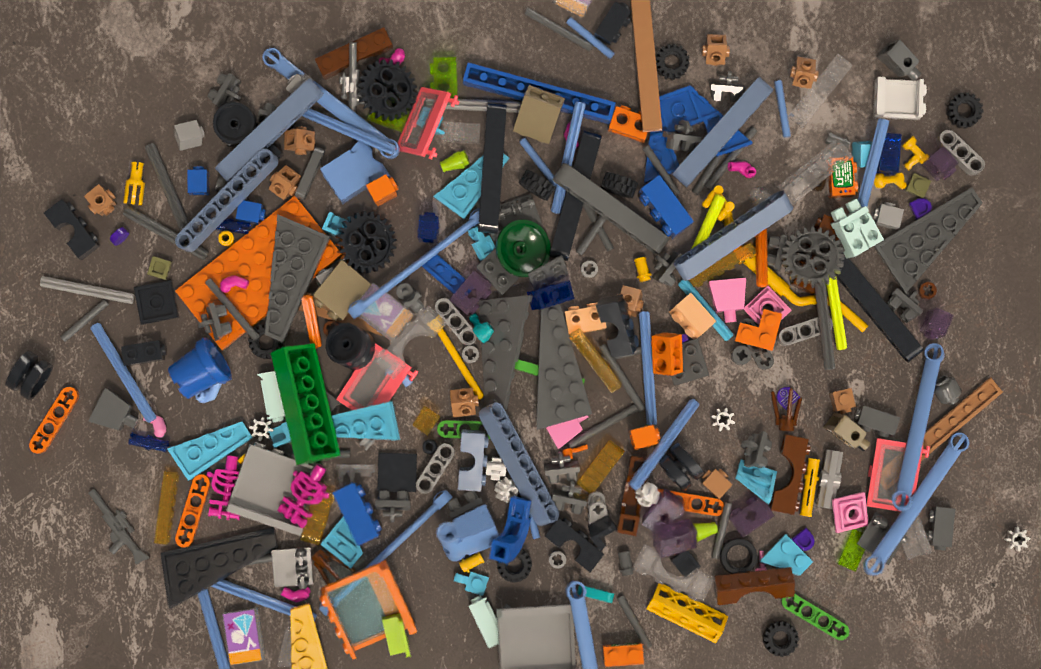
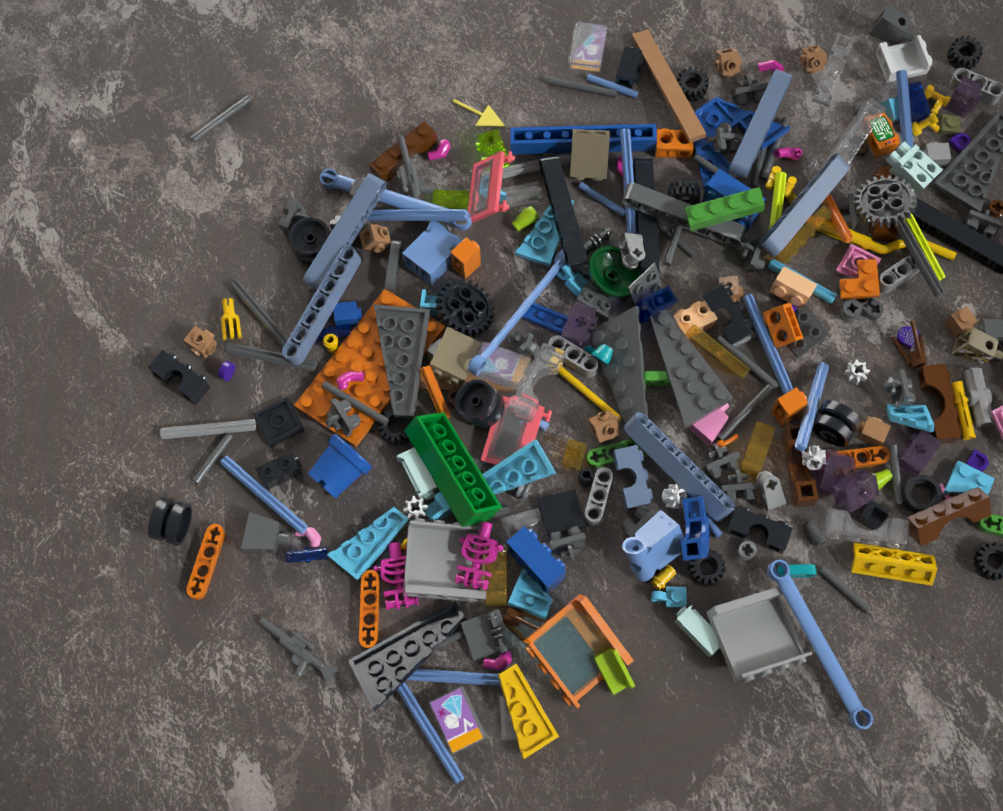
camera: 10 degrees left, 15 degrees down
(159, 268) = (273, 388): olive plate -> none
(165, 508) = (341, 610): clear yellow piece -> none
(188, 135) = (269, 262): light grey brick -> none
(198, 181) = (290, 301): blue brick -> none
(208, 395) = (355, 492): light blue arm -> none
(284, 182) = (372, 278): medium nougat brick -> none
(377, 103) = (443, 173): black gear -> none
(428, 228) = (520, 278): clear blue brick -> none
(437, 505) = (612, 530): medium blue piece -> none
(453, 35) = (487, 118): none -> light yellow piece
(475, 350) = (599, 378): light grey bush -> none
(495, 468) = (657, 479): white gear -> none
(536, 185) = (608, 214): black tyre -> none
(547, 230) = (631, 249): none -> light grey piece
(585, 264) = (677, 281): light grey bush -> none
(600, 529) = (781, 504): black panel -> none
(623, 654) = (846, 622): orange brick -> none
(642, 269) = (730, 262): yellow pin -> none
(647, 223) = (725, 209): none -> bright green brick
(728, 297) = (818, 262): bright pink torso -> none
(761, 65) = (770, 65): none -> dark pink arm
(782, 109) = (804, 96): medium blue piece -> none

